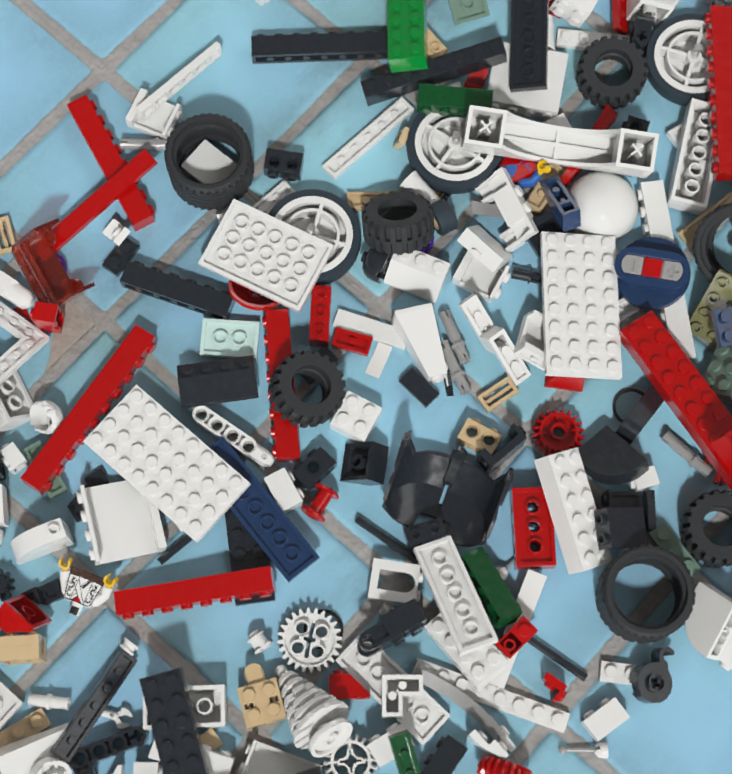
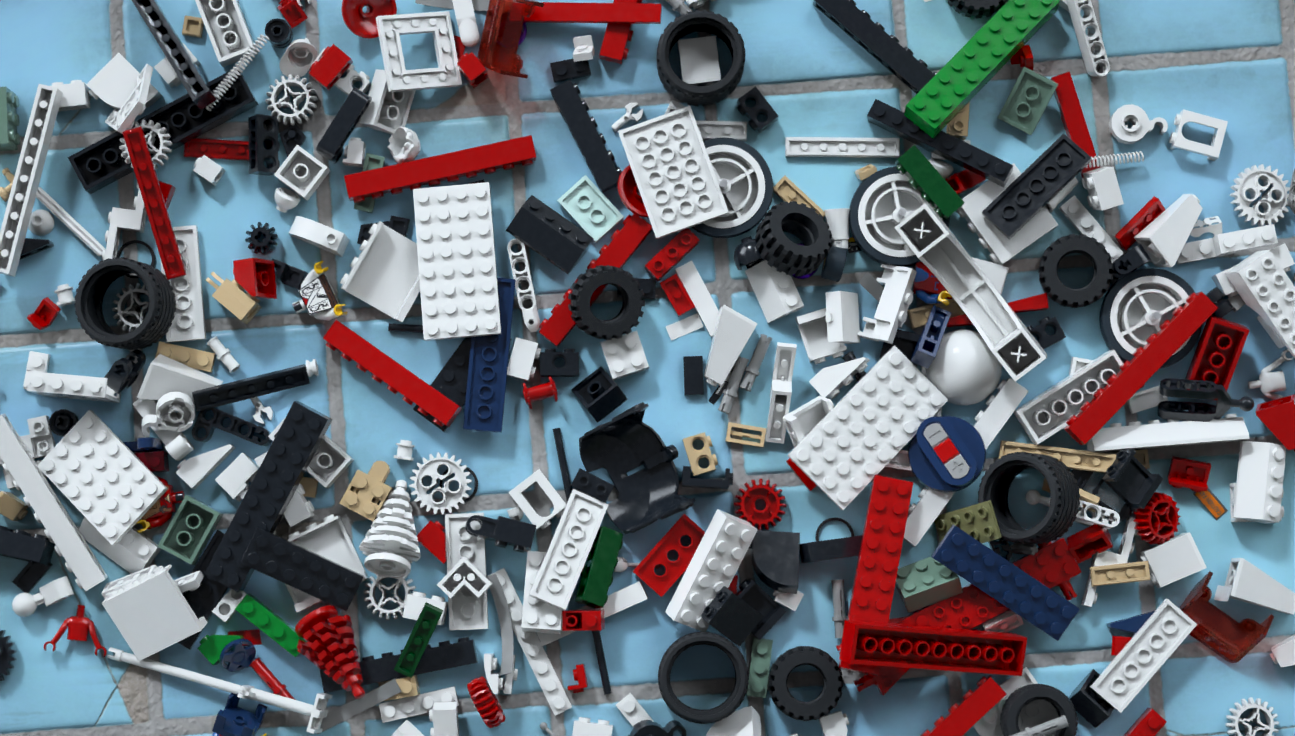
camera: 45 degrees right, 10 degrees up
(195, 251) = (628, 116): none -> white bar
(520, 295) = (832, 378): none -> white slope

